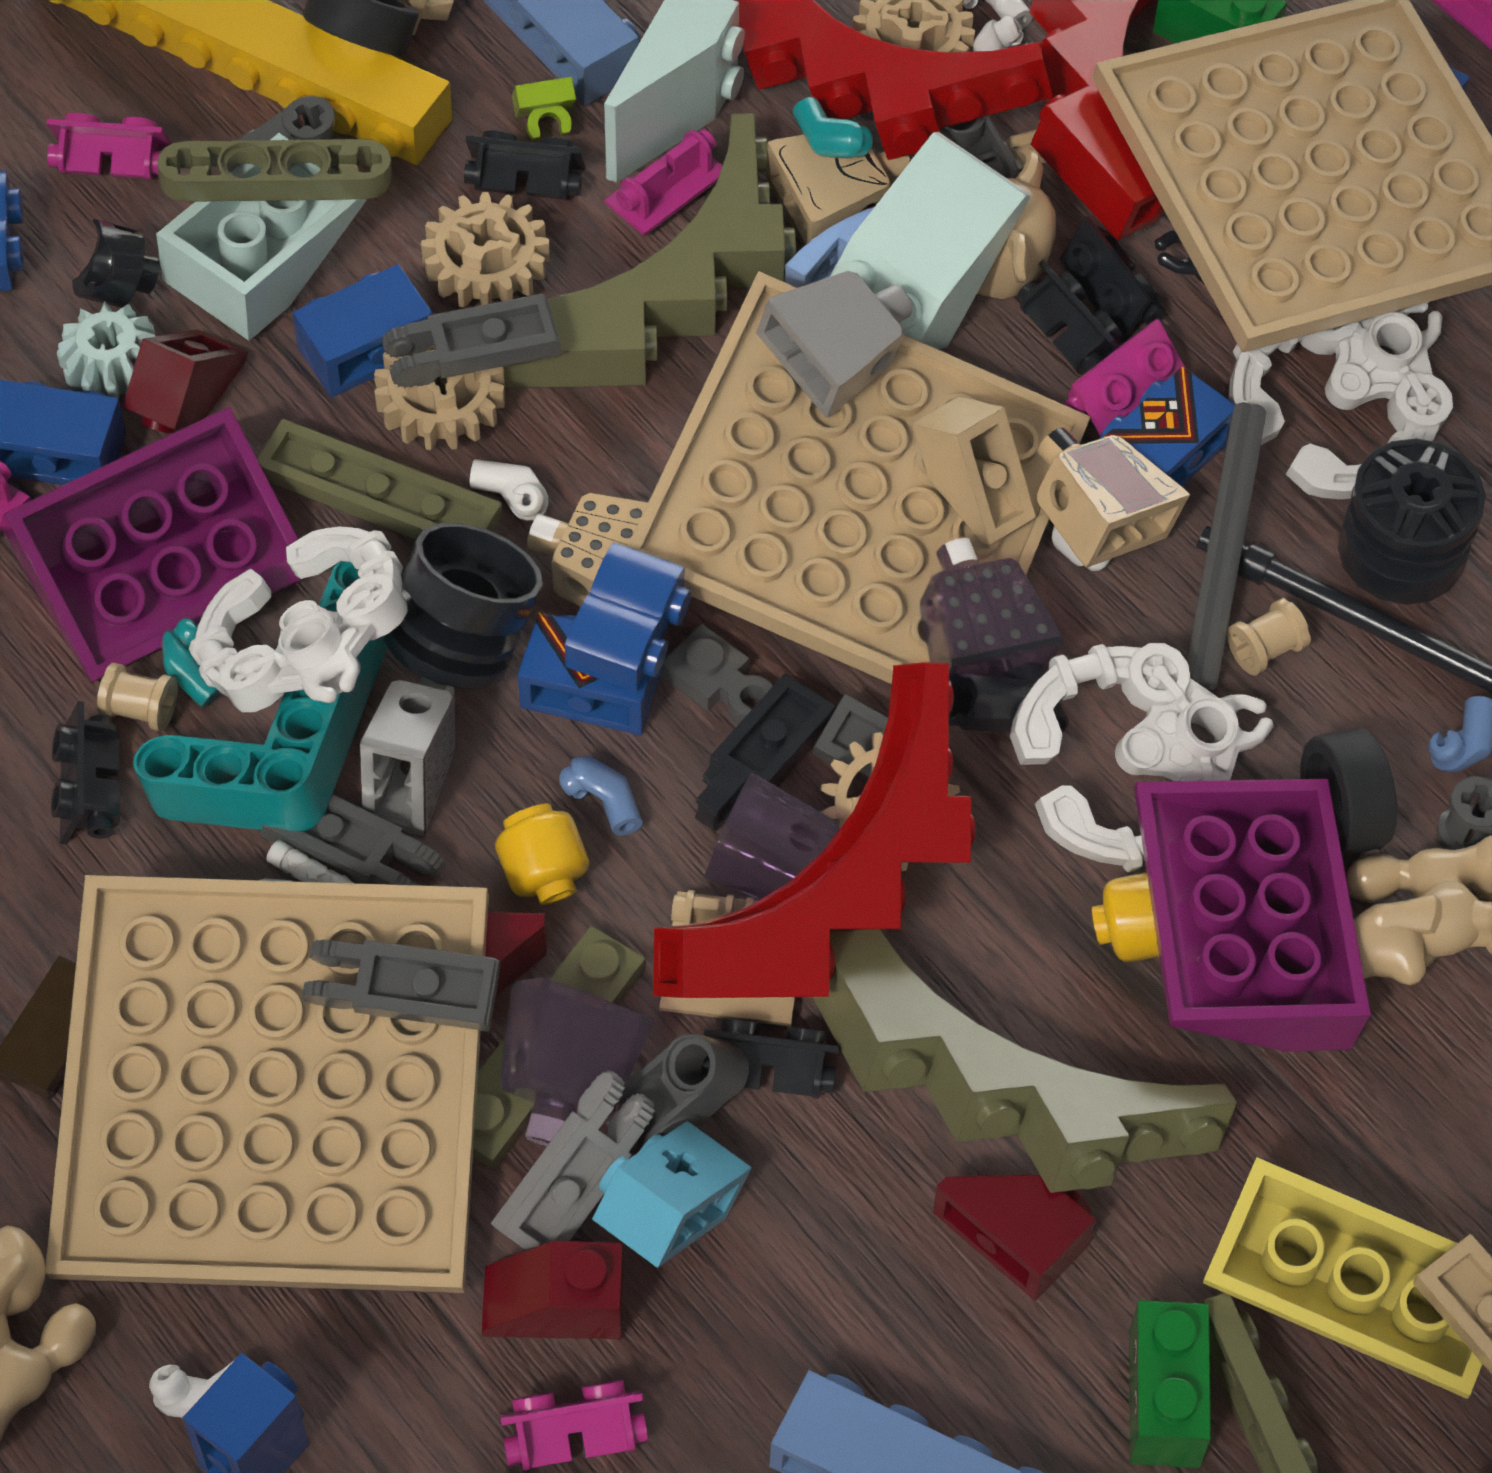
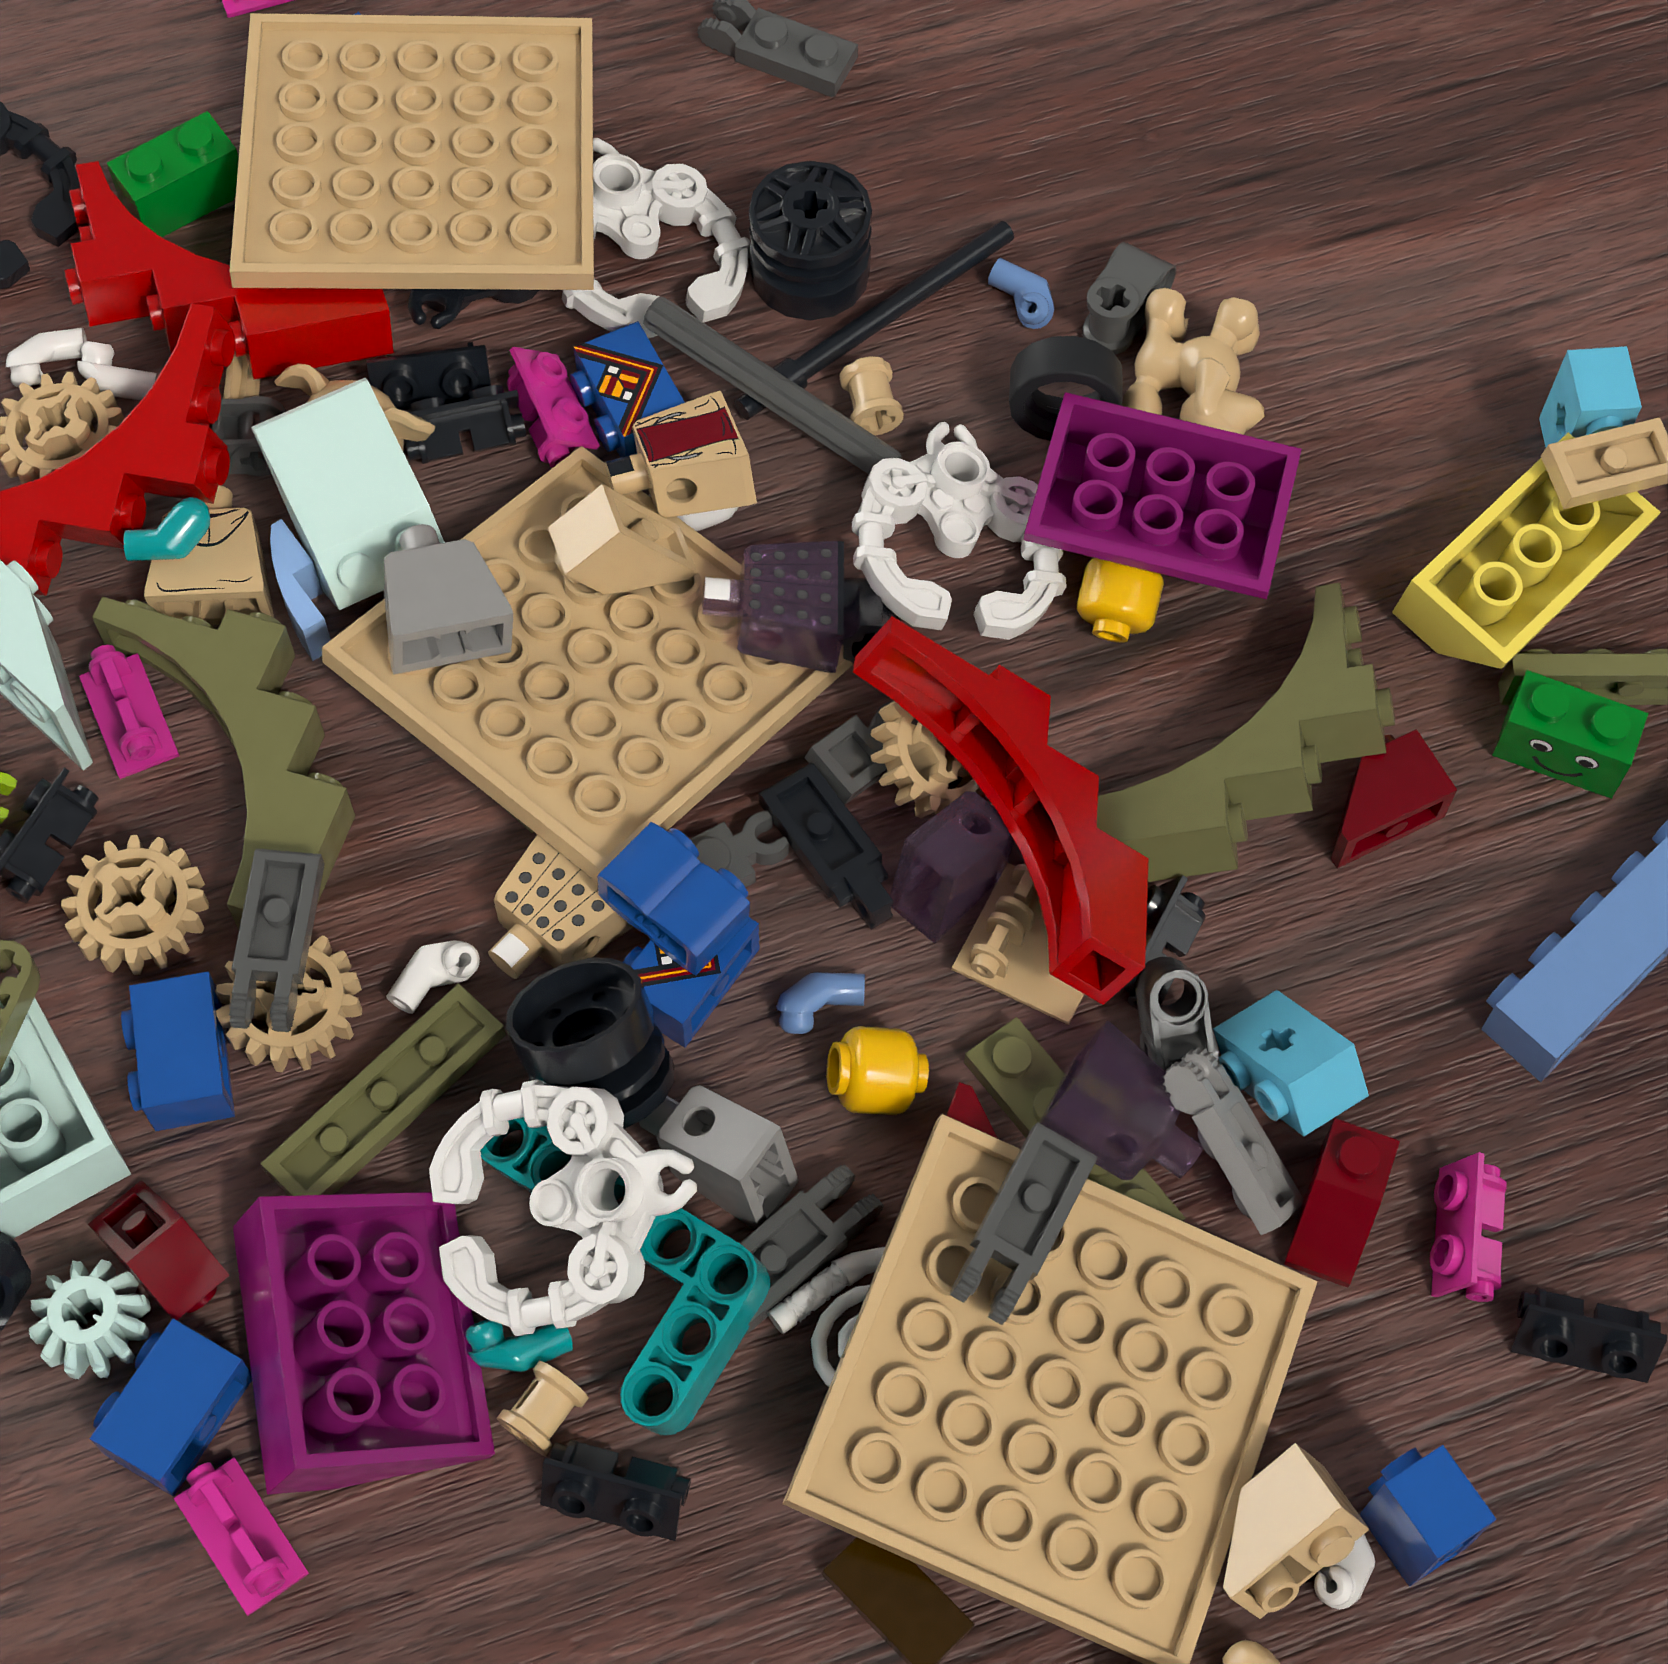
camera: 70 degrees left, 5 degrees up
(202, 1317) = (1286, 1531): none -> tan slope

